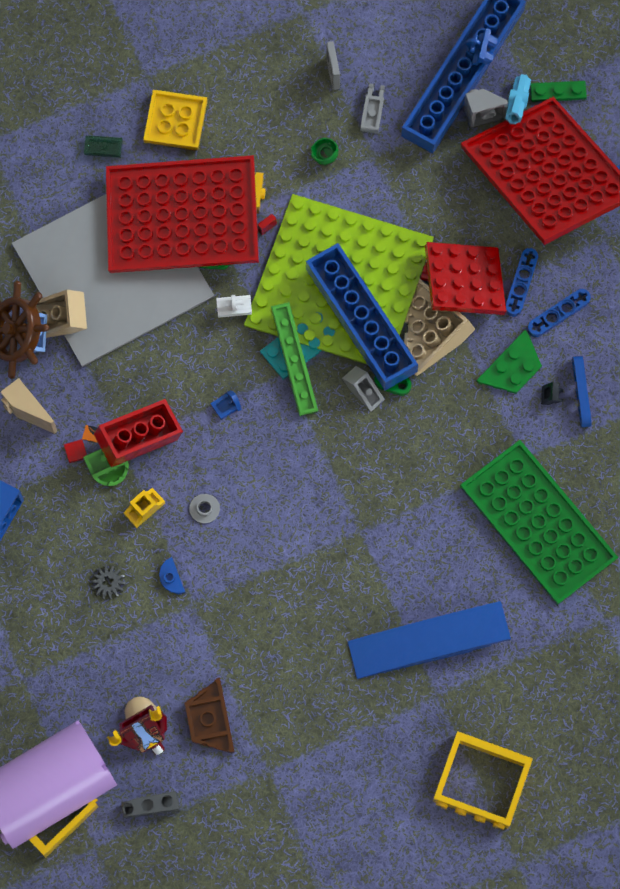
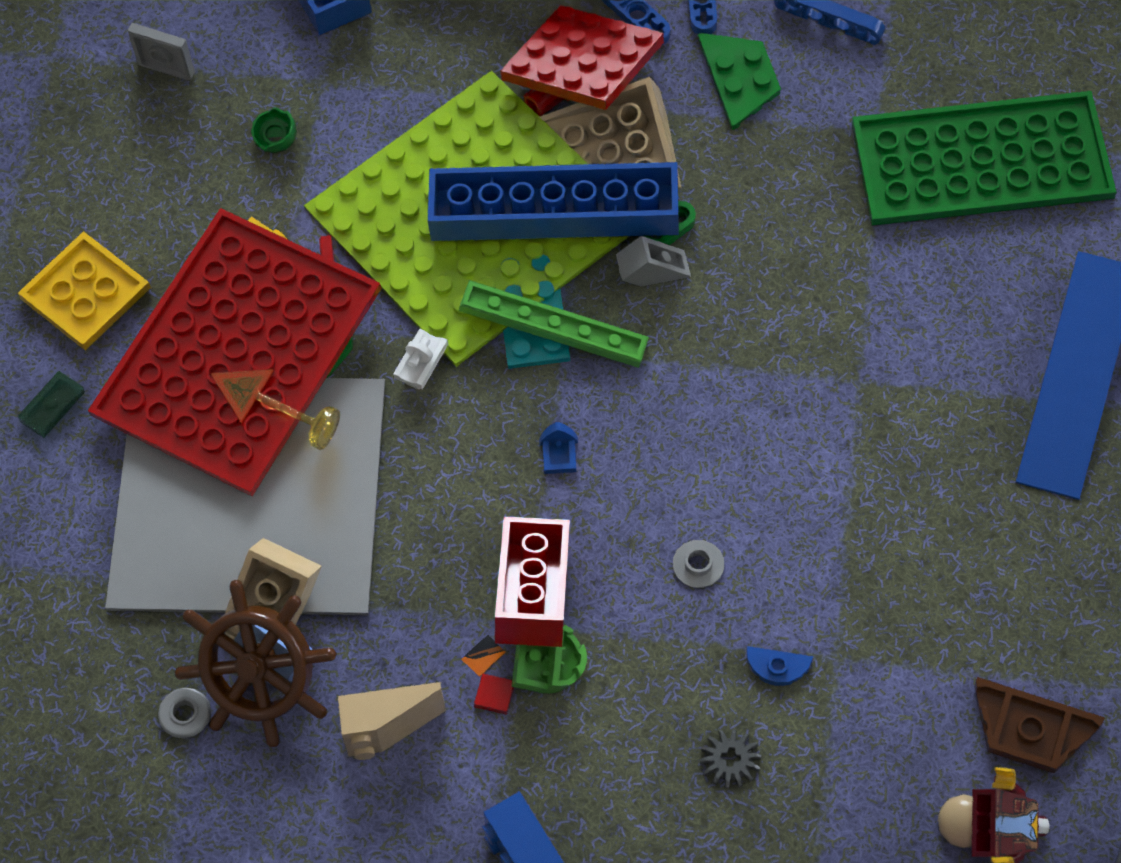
camera: 55 degrees left, 10 degrees down
(143, 507) = (647, 643): yellow brick -> none
(159, 232) = (245, 388): none -> piece
(372, 110) = (257, 46): light grey hinge -> none
(550, 393) = (809, 50): black tile -> none

